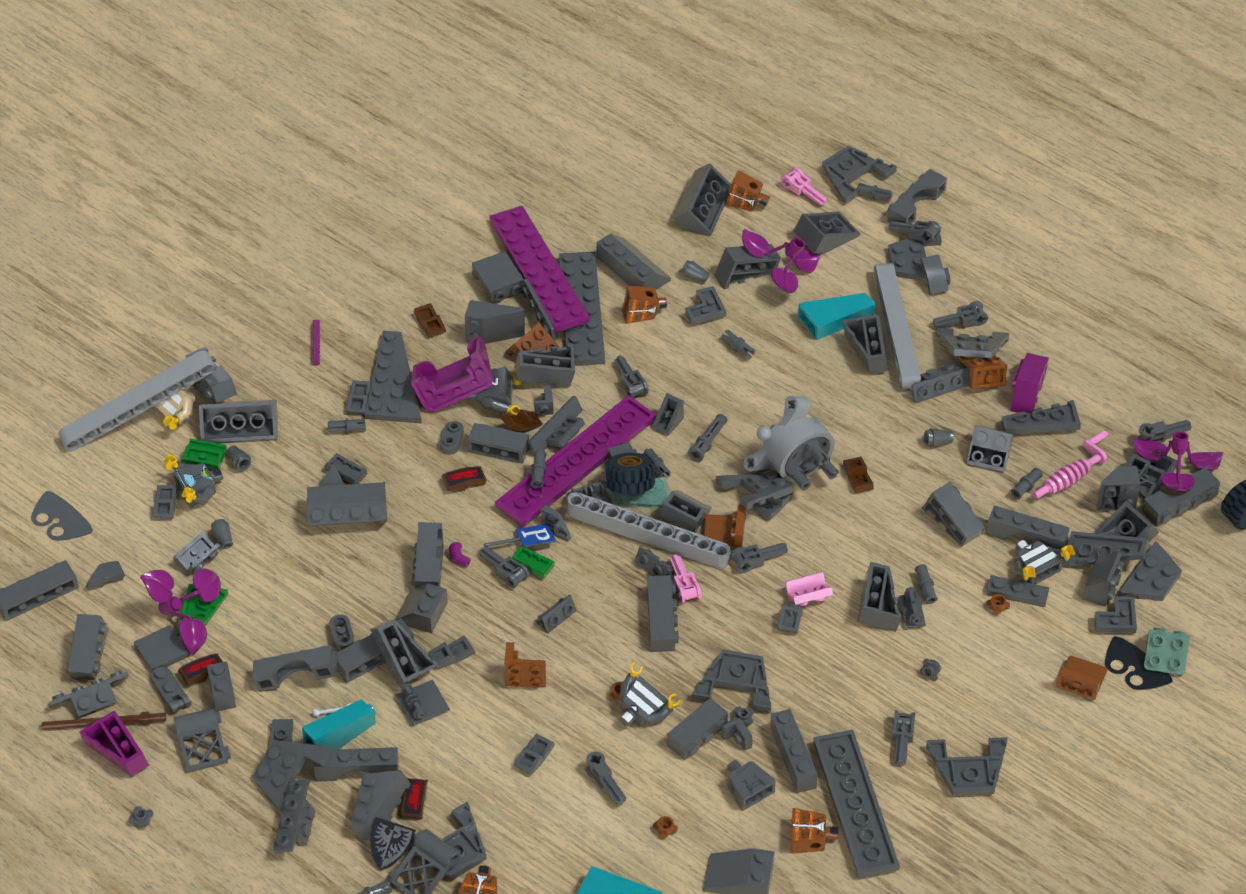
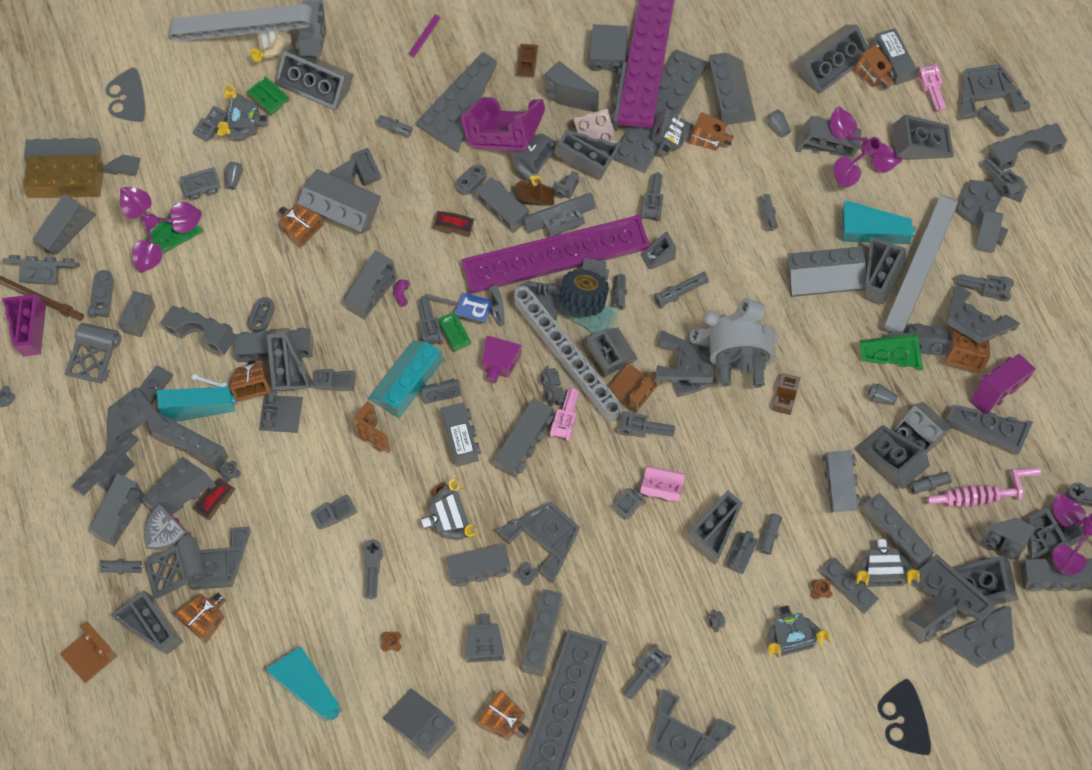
camera: 35 degrees right, 15 degrees up
(53, 608) = (63, 175): none -> pearl gold brick
(161, 648) = (117, 254): dark grey tile -> none
(197, 670) = (126, 287): slope -> none
(240, 459) = (291, 113): dark grey cone -> none
(319, 543) = (299, 223): none -> dark orange torso
(332, 848) = (117, 510): none -> dark grey wedge
(358, 397) = (422, 103): dark grey slope -> none
(379, 684) = (250, 381): none -> dark orange torso
(411, 765) = (232, 465): none -> dark grey plate
(424, 607) = (339, 327): dark grey slope -> none
(517, 616) = (407, 377): none -> teal slope
(538, 468) = (514, 247): dark grey pin -> none
(589, 562) = (500, 358): none -> magenta torso
(602, 638) = (461, 434): none -> dark grey brick
(606, 317) = (670, 131): none -> dark grey torso
(708, 309) = (765, 166): dark grey plate -> none
(739, 731) = (510, 587): dark grey bracket -> none
(771, 181) = (896, 53): none -> dark grey brick
(822, 366) = (826, 271): none -> slope
(925, 397) = (893, 349): none -> green wing
(984, 476) = (894, 456): none -> dark grey slope
(1003, 645) = (793, 634): none -> torso
(1081, 677) = (846, 704): dark orange bracket -> none
(1121, 620) = (921, 668): dark grey plate -> none
(1166, 651) = (941, 723): sand green bracket -> none

